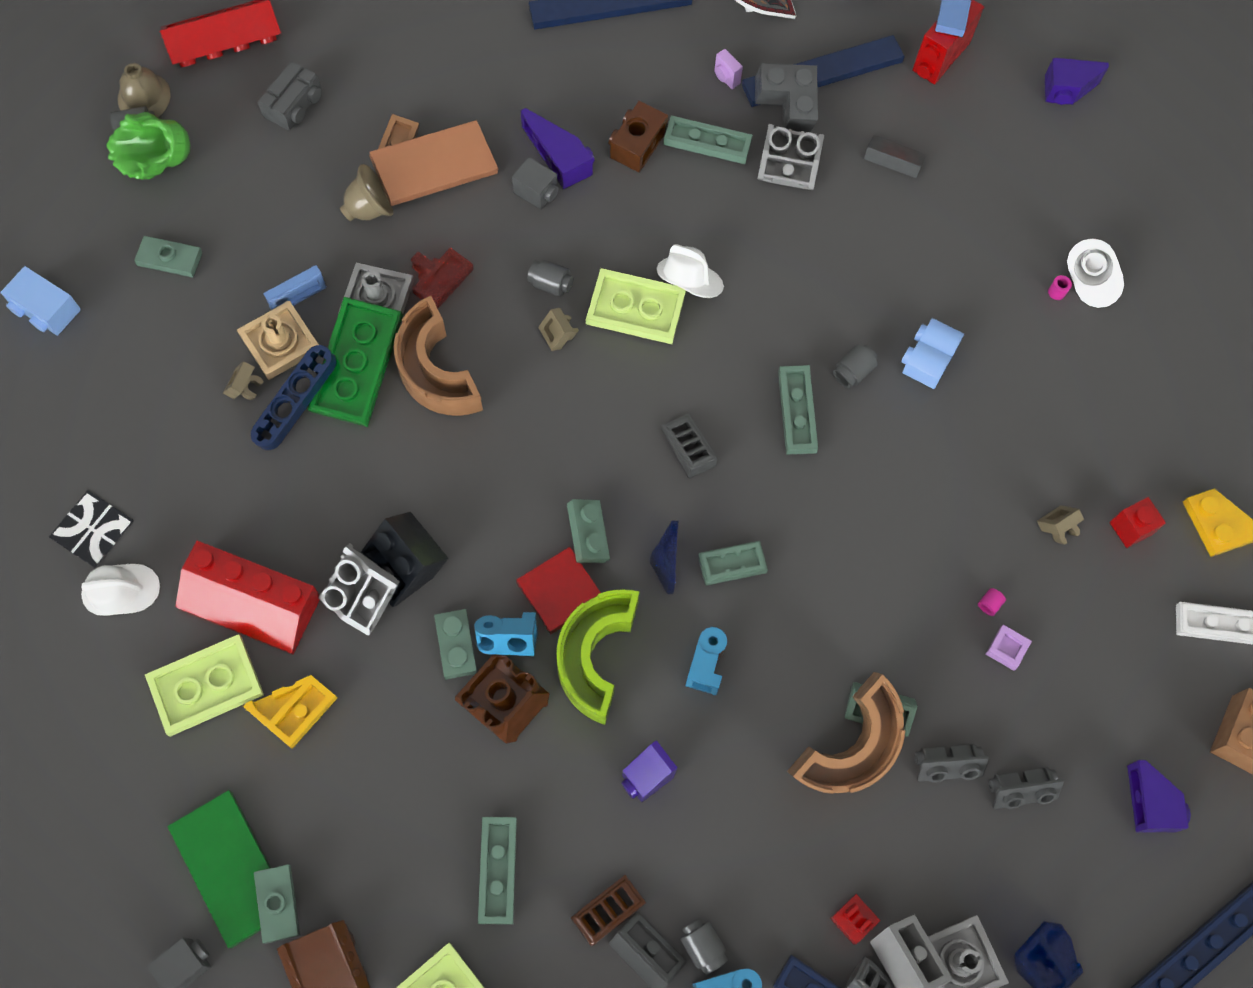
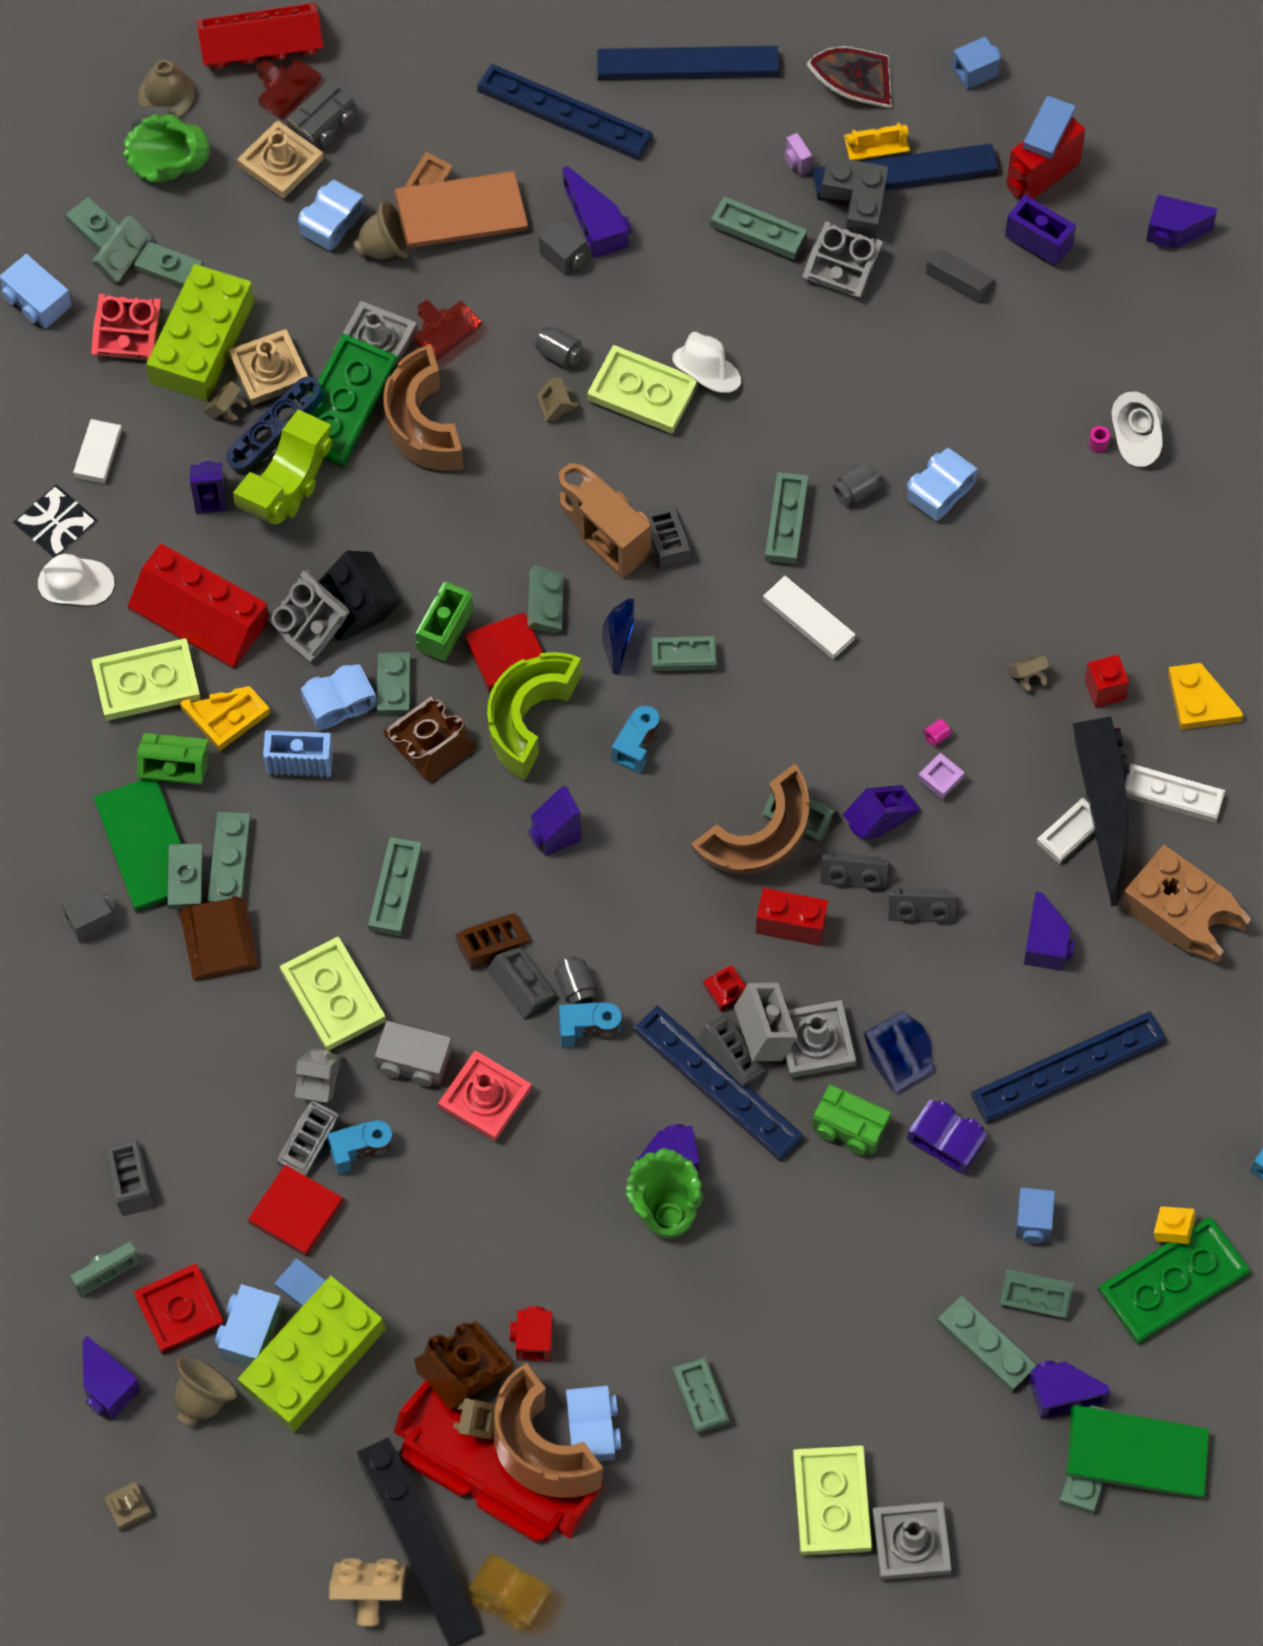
camera: 15 degrees right, 5 degrees down
(94, 229) = (92, 222): none -> sand green plate
(119, 247) = (121, 249): none -> sand green plate
(123, 450) = (97, 451): none -> white tile
(133, 323) = (125, 327): none -> coral slope
(206, 317) = (200, 332): none -> lime brick
(237, 470) = (208, 487): none -> dark purple slope
(243, 771) = (172, 758): none -> bright green brick
(252, 74) = (285, 86): none -> clear red hinge
(258, 140) = (280, 159): none -> tan plate
(296, 288) = (295, 318): medium blue tile -> none
(314, 185) = (331, 214): none -> light blue brick
(315, 446) = (291, 472): none -> lime brick
(320, 870) = (229, 856): none -> sand green plate
(372, 741) = (298, 753): none -> light blue brick
(402, 669) = (338, 696): none -> light blue brick
(494, 572) = (444, 621): none -> bright green brick
(507, 635) = (445, 681): dark azure leg -> none
(511, 61) = (565, 112): none -> dark blue tile
(631, 441) = (606, 521): none -> medium nougat brick
(636, 150) = (680, 228): reddish brown brick -> none
(794, 48) = (877, 142): none -> yellow hinge
(841, 504) = (809, 617): none -> white tile
(905, 830) = (791, 916): none -> red brick
(959, 104) = (1040, 230): none -> dark purple brick
(961, 697) = (880, 811): none -> dark purple slope
(1143, 681) = (1068, 832): none -> white tile
(1178, 649) = (1105, 788): none -> black slope

